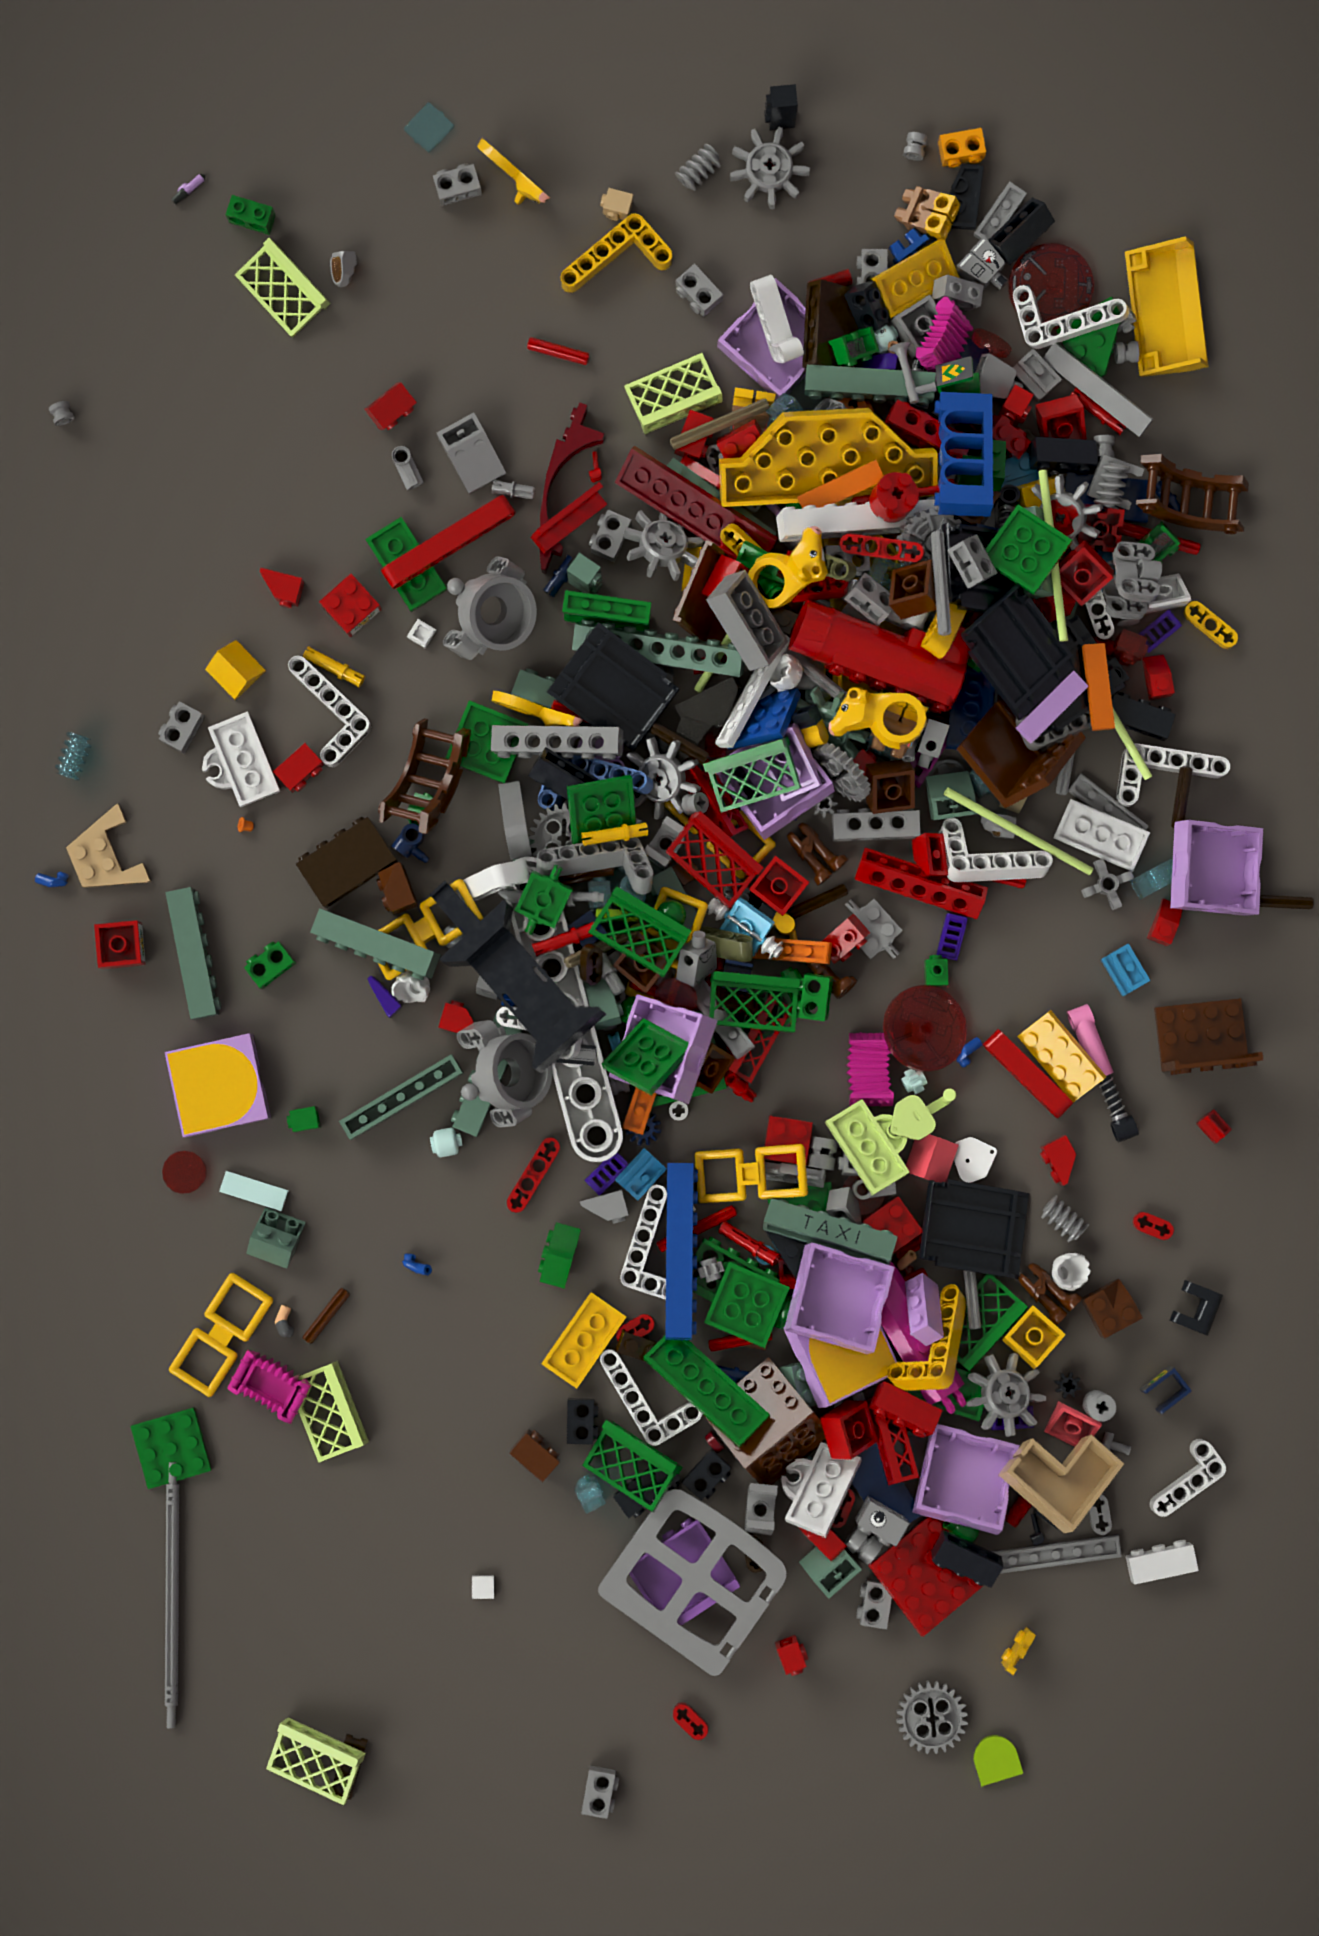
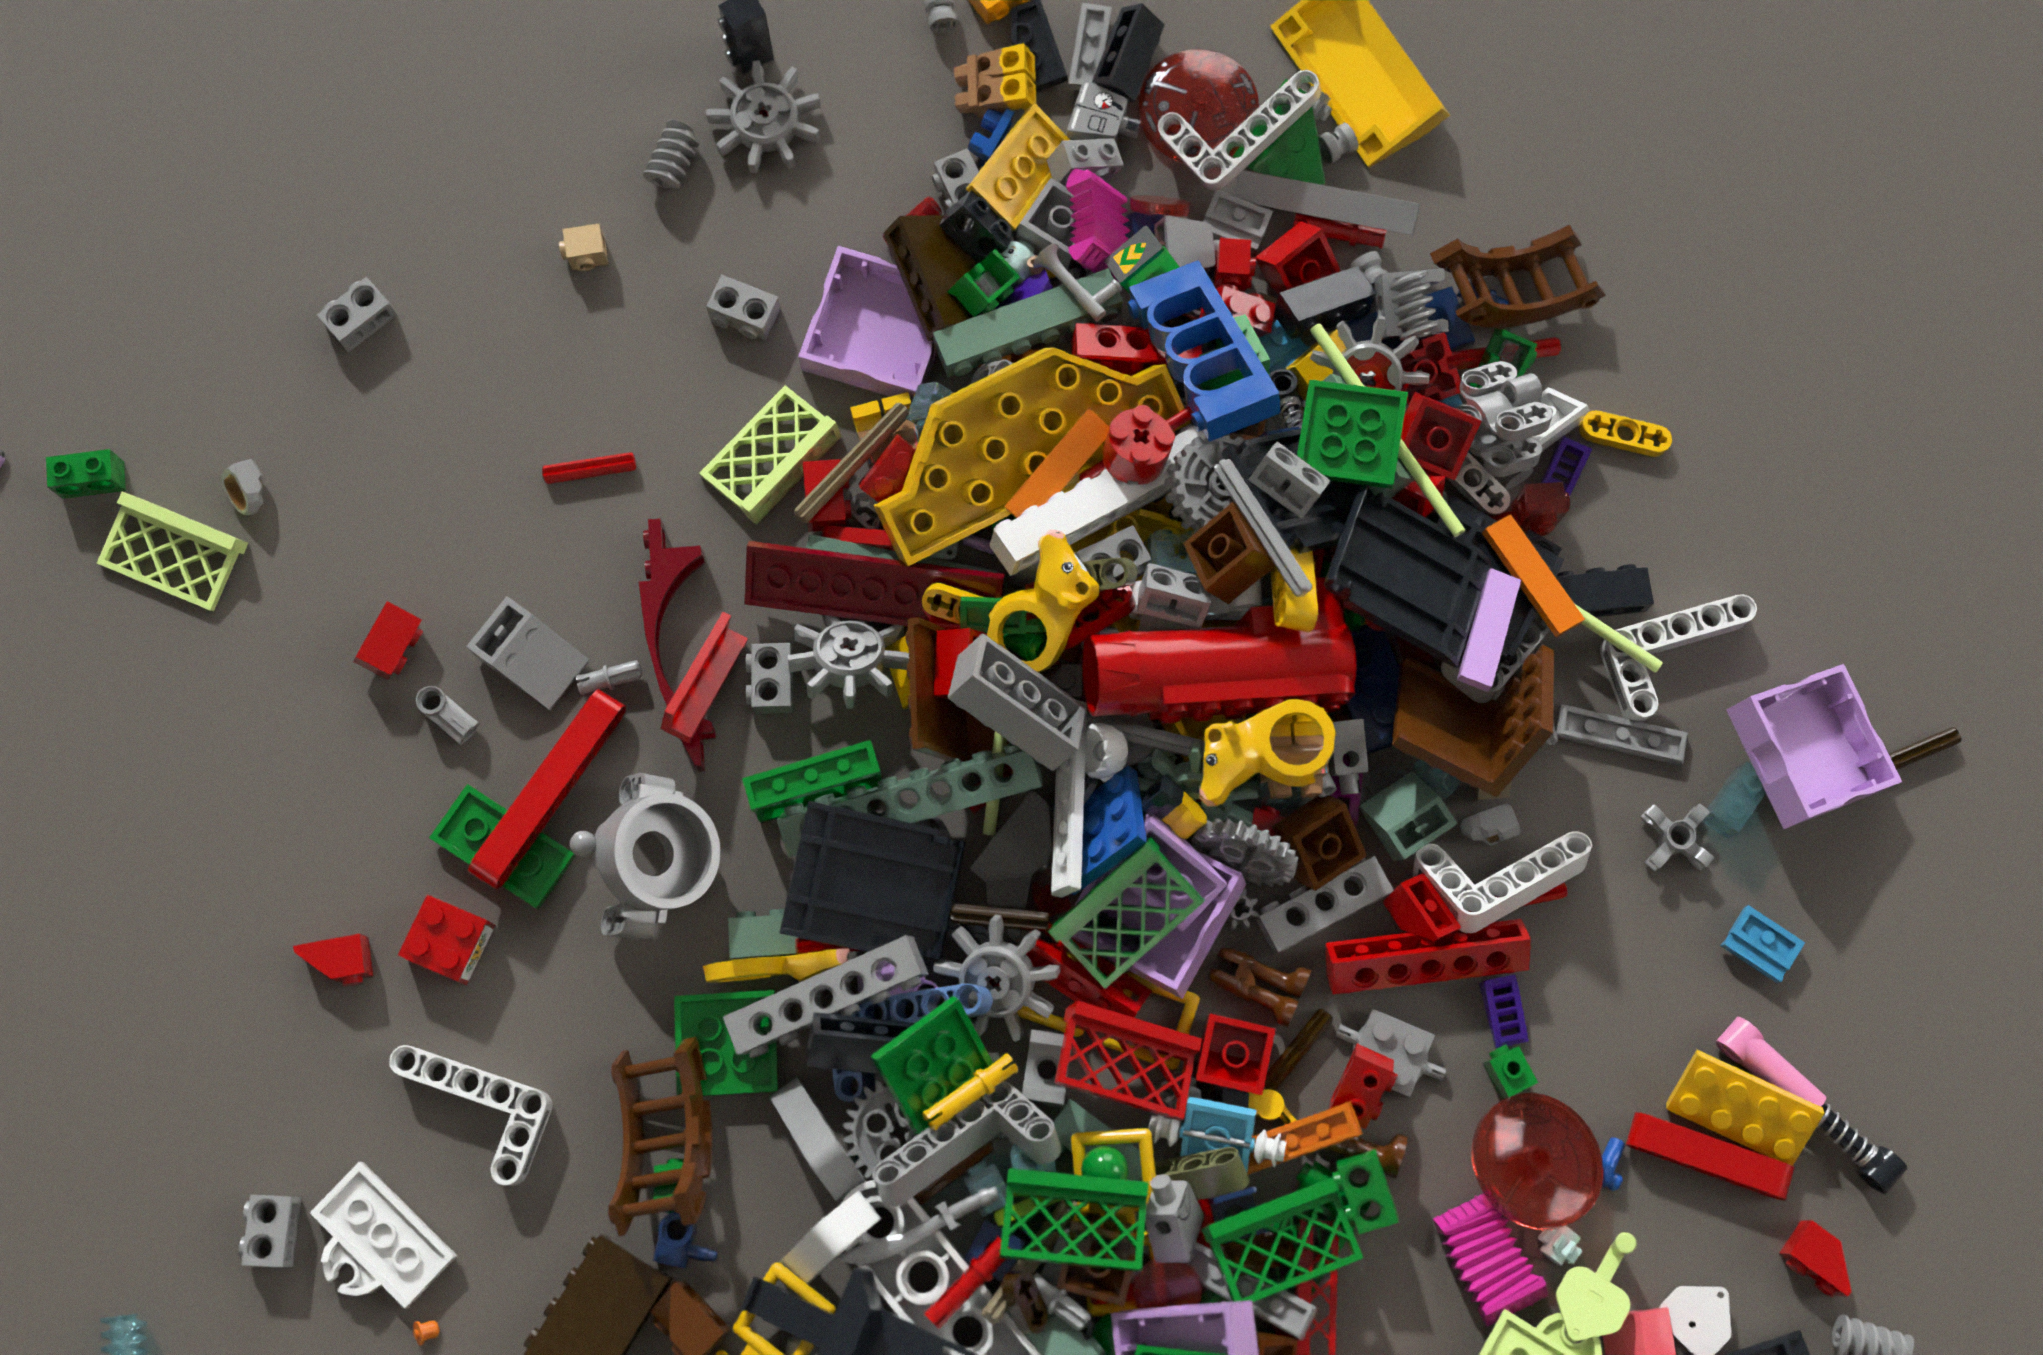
camera: 25 degrees left, 10 degrees down
(234, 669) = (316, 1107): yellow slope -> none
(299, 768) = (469, 1210): red brick -> none
(338, 669) = (464, 1038): yellow pin -> none
(421, 633) = (566, 933): white tile -> none
(428, 127) = (288, 261): clear light blue piece -> none
(524, 185) = (448, 273): yellow animal -> none
(543, 899) = (911, 1239): green plate -> none
(559, 577) = (727, 764): dark blue pin -> none
(585, 575) = (759, 745): sand green brick -> none
(595, 474) = (713, 606): red hand -> none
(615, 249) = (607, 305): yellow beam -> none
(683, 876) = (1092, 1103): reddish brown tile -> none
(694, 803) = (1061, 993): light grey wheel -> none
(774, 321) = (862, 298): white beam -> none
(882, 544) = (1154, 515): red beam -> none
(1018, 831) = (1522, 821): yellowish green piece -> none
(1101, 835) = (1633, 774): white tile -> none
(1155, 1221) = (1995, 1299): red beam -> none
(1158, 677) = (1596, 531): red slope -> none
(1165, 924) = (1781, 854): red slope -> none
(1182, 794) = (1712, 672): dark brown axle -> none
(1203, 1037) = (1923, 991): reddish brown bracket -> none
(1214, 1126) = (1999, 1106): red piece -> none

